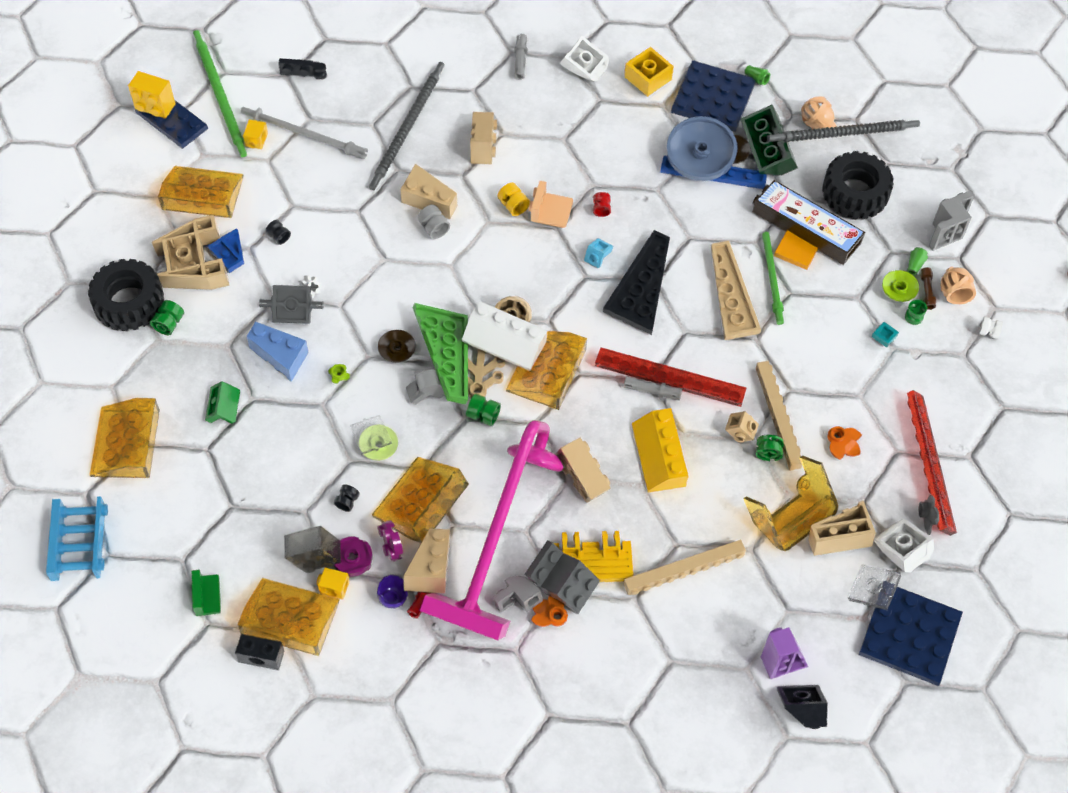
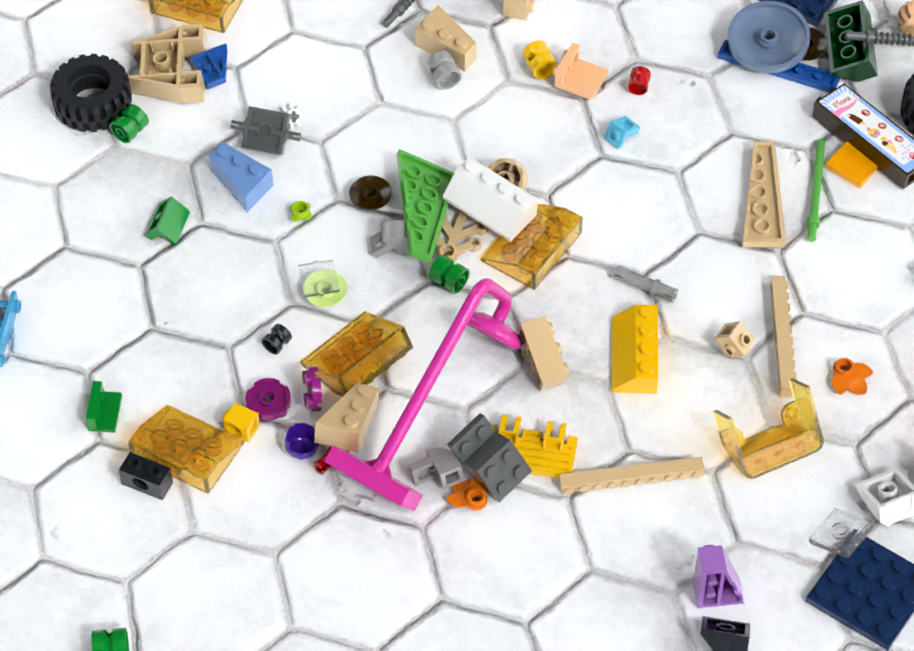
camera: 15 degrees right, 5 degrees down
(126, 439) = (57, 240): clear yellow slope -> none
(278, 232) = (271, 56): black wheel -> none
(312, 549) = (225, 381): clear smoke brick -> none
(639, 290) = (657, 179): black wing -> none
(672, 376) = (670, 275): clear red plate -> none
(769, 448) = (760, 368): green wheel -> none
(842, 532) = (819, 469): tan wedge -> none

